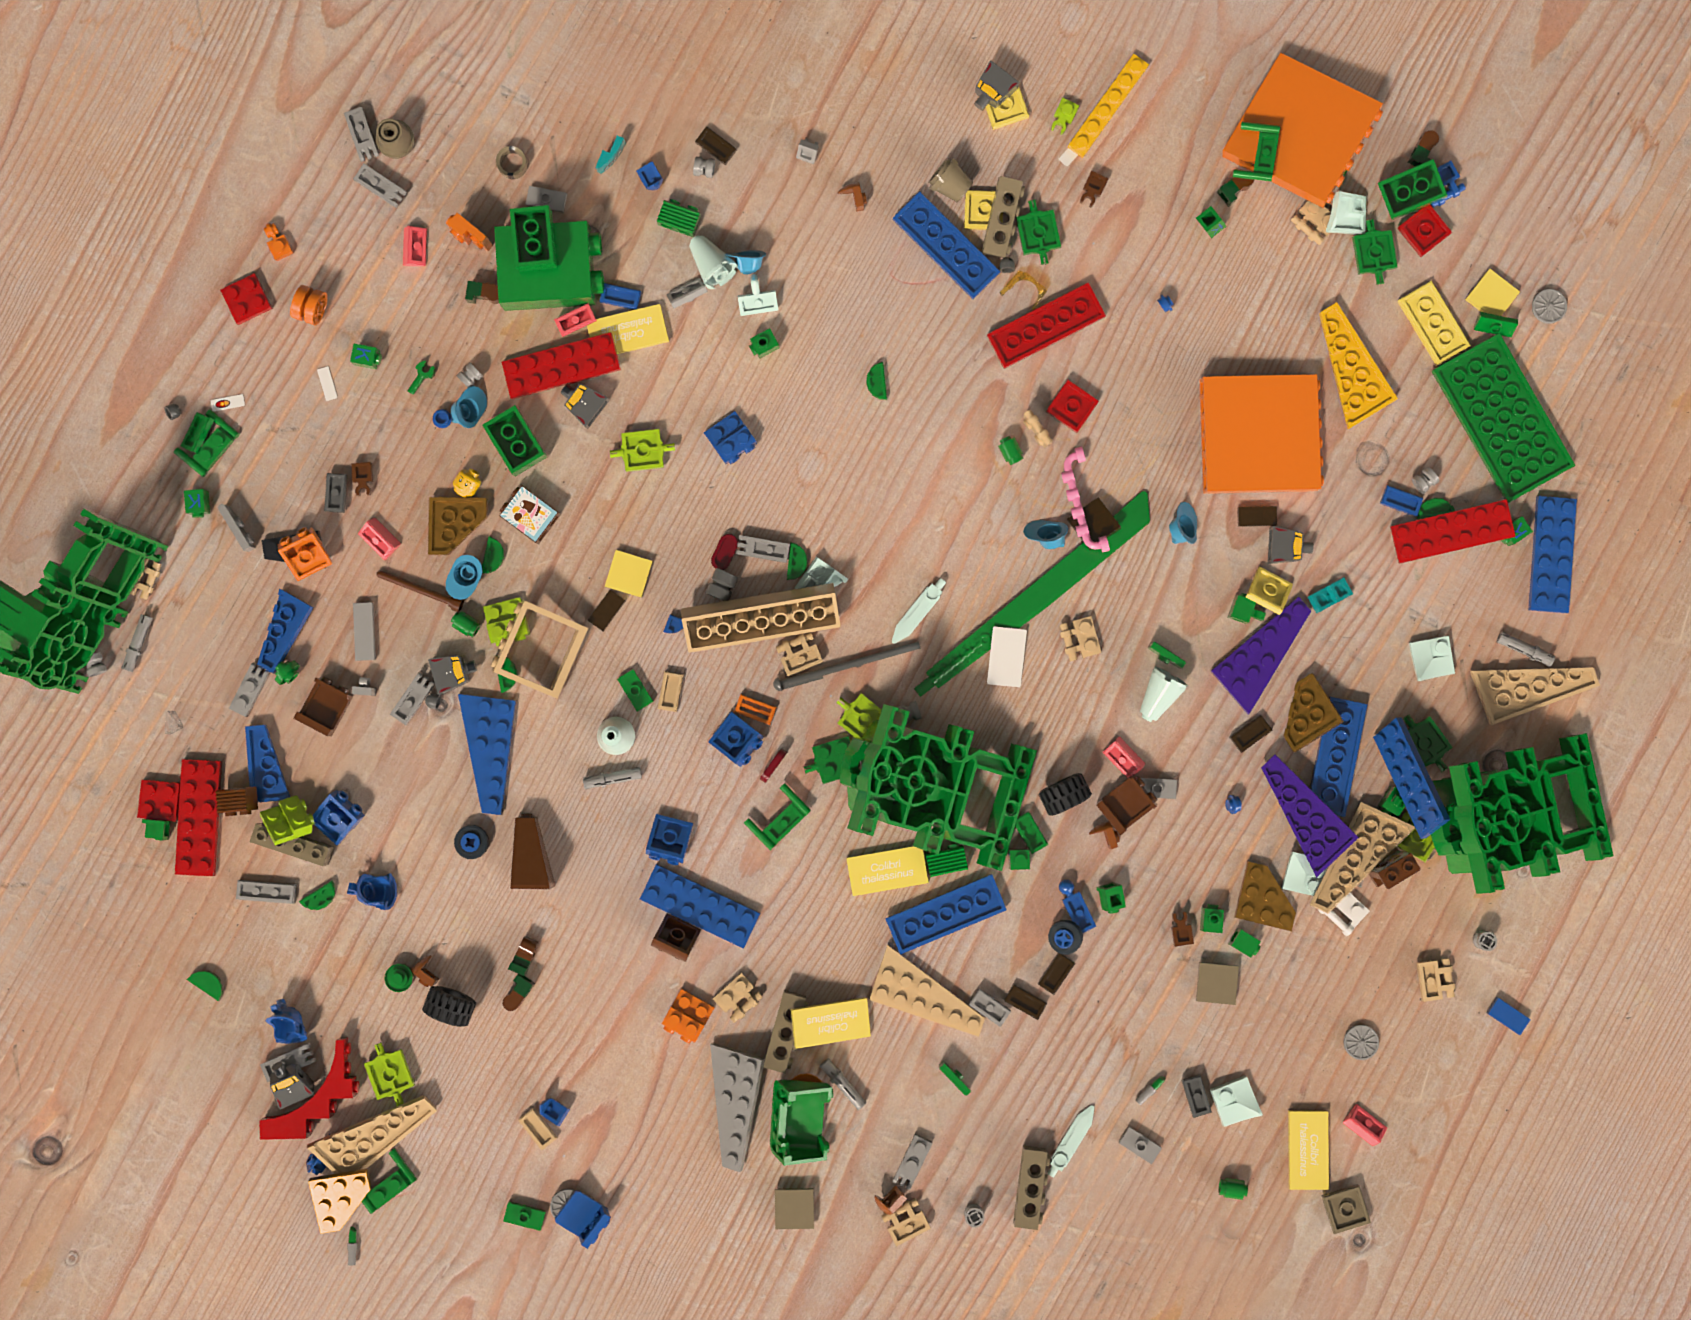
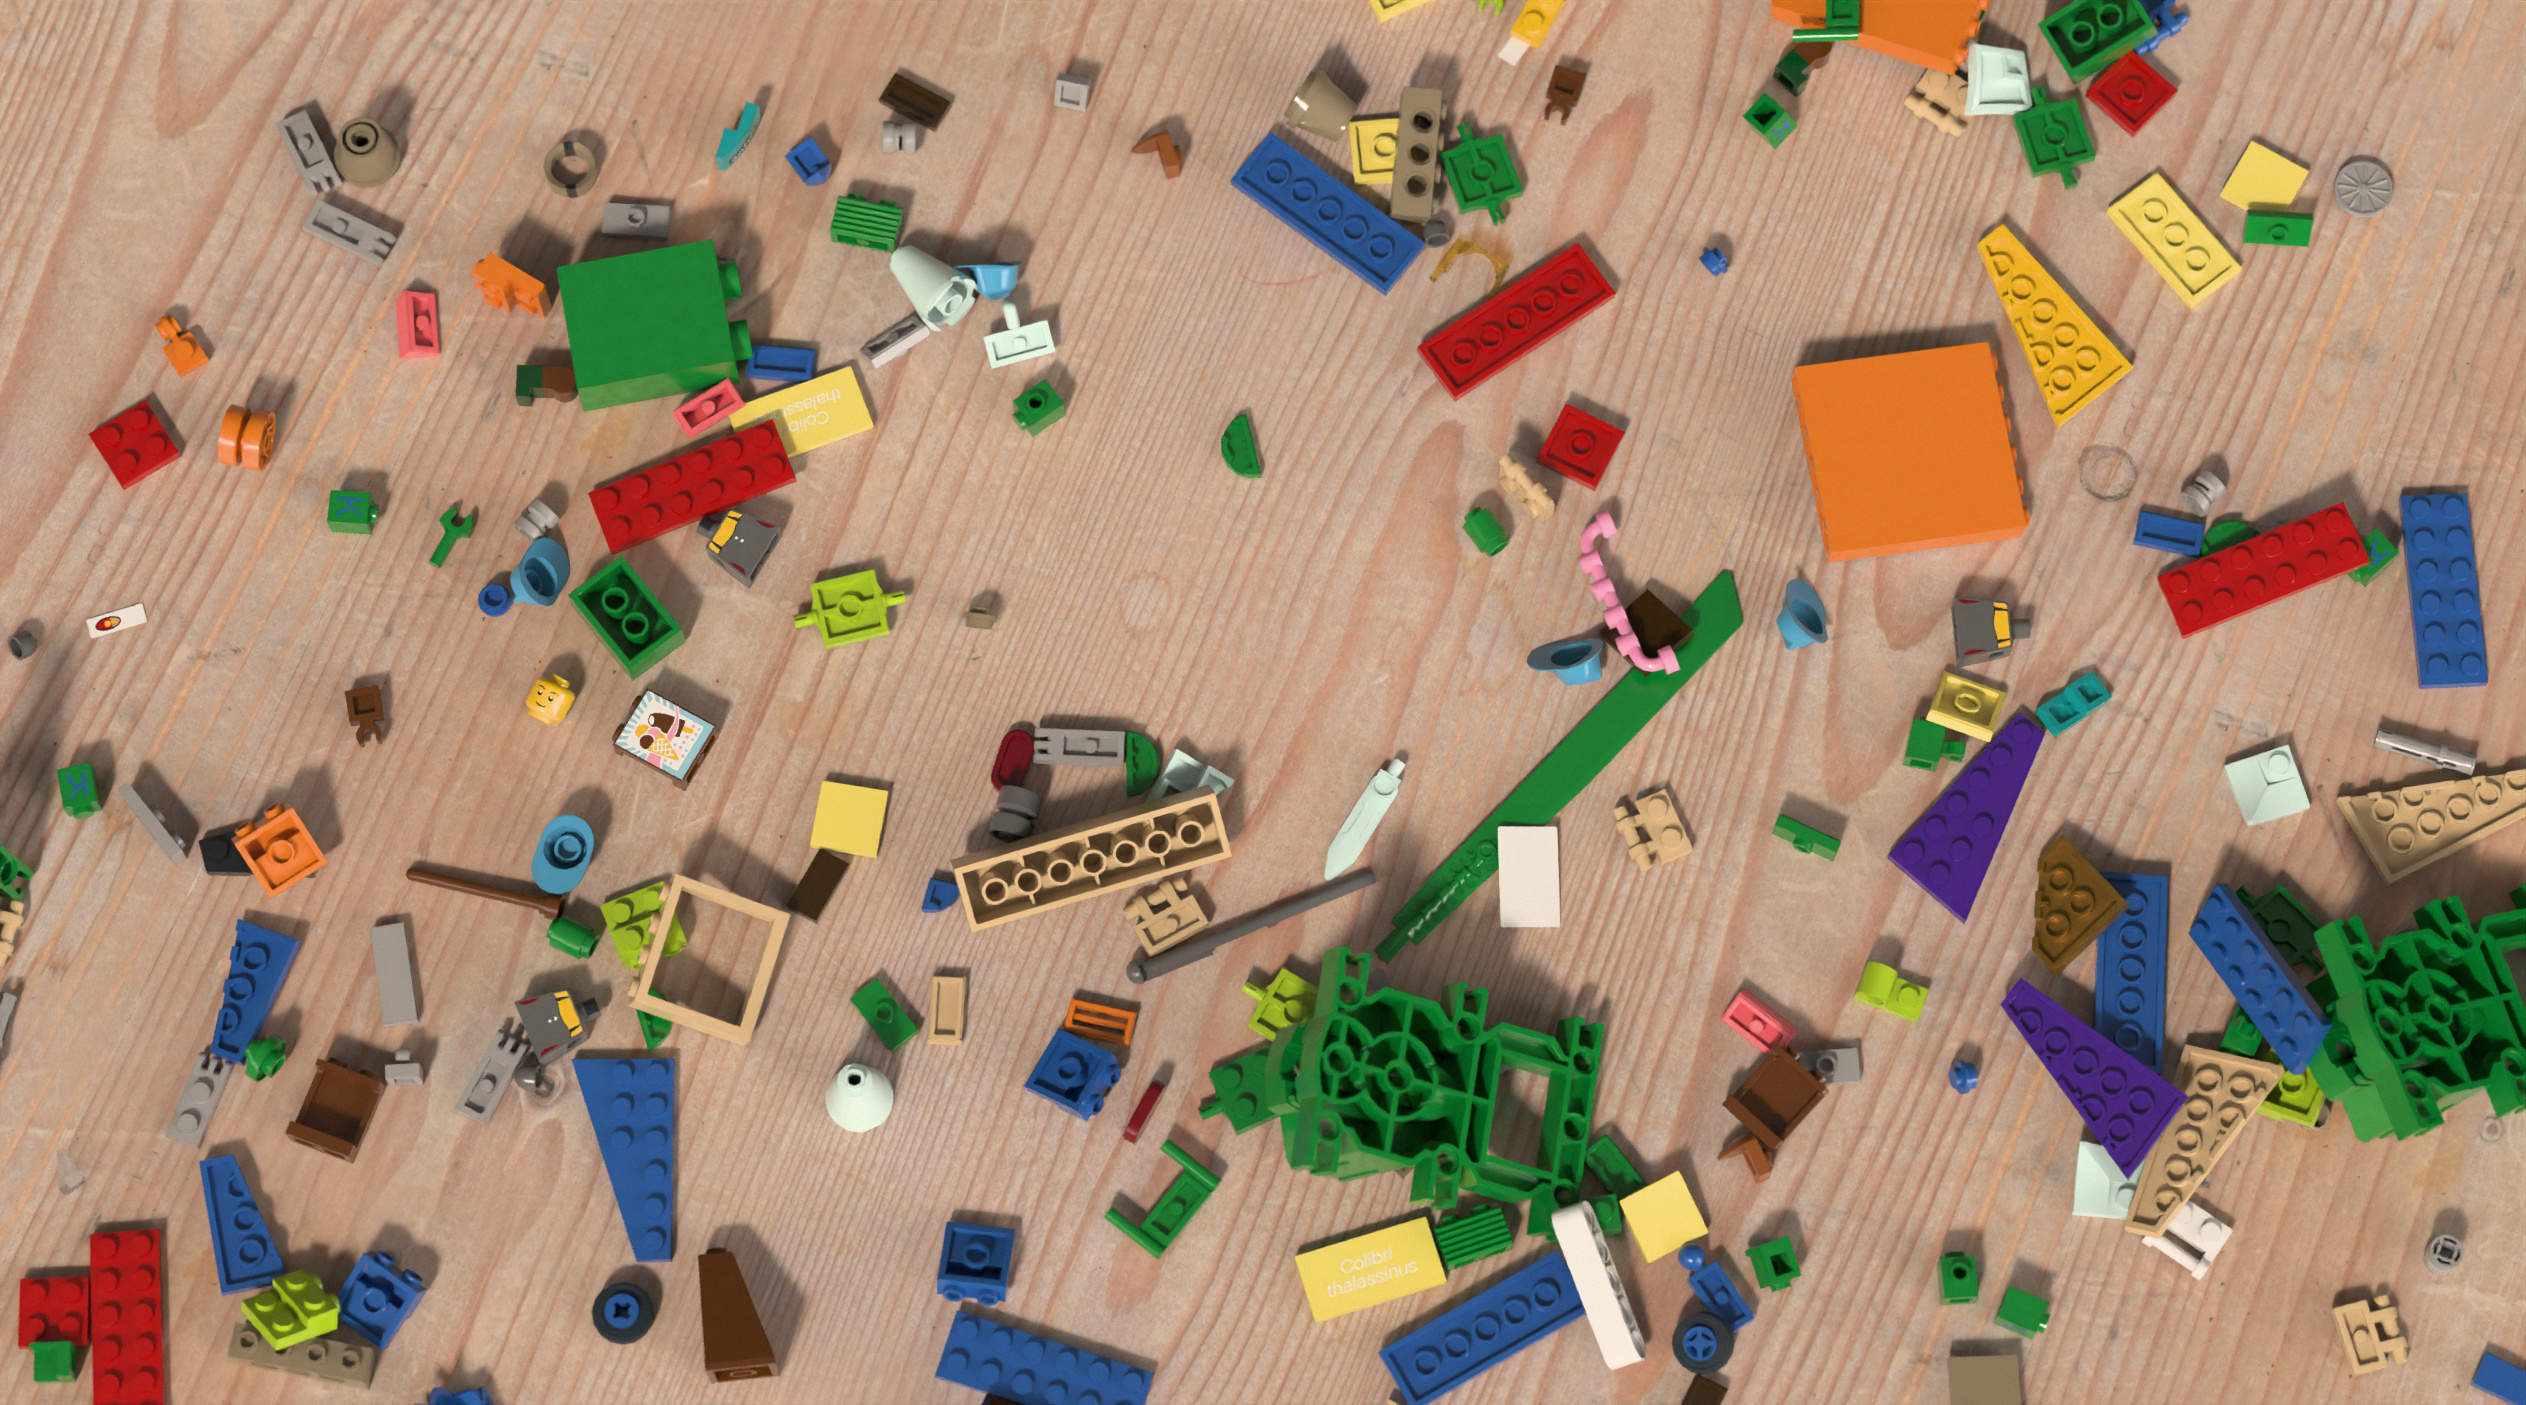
camera: 10 degrees left, 15 degrees down
(197, 433) = (69, 674): green plate -> none
(212, 448) = (96, 699): green plate -> none
(237, 799) = (197, 1289): reddish brown brick -> none
(327, 383) = (287, 568): white sticker -> none
(335, 493) = (321, 745): dark grey plate -> none
(379, 538) = (404, 814): coral slope -> none
(453, 521) = (532, 768): pearl gold plate -> none
(493, 556) = (608, 819): green tile -> none
(533, 238) = (627, 274): green brick -> none
(611, 778) = (861, 1170): light grey pin -> none
(715, 465) = (979, 618): none -> dark tan plate
(731, 438) = (1000, 571): blue plate -> none
(1012, 899) = (1599, 1285): none -> white beam
(1053, 862) = (1662, 1216): none -> light yellow tile
(1065, 794) = (1664, 1089): black tyre -> none
(1160, 694) = (1805, 902): light aqua cone -> none
(1181, 933) = (1908, 1310): reddish brown plate -> none
(1200, 750) = (1887, 992): none -> lime plate
(1250, 733) = (1974, 954): dark brown tile -> none
(1257, 516) = (1925, 589): dark brown tile -> none
(1263, 899) = (2043, 1236): pearl gold plate -> none
(1394, 869) = (2259, 1146): reddish brown panel -> none
(1503, 418) = (2317, 377): green plate -> none

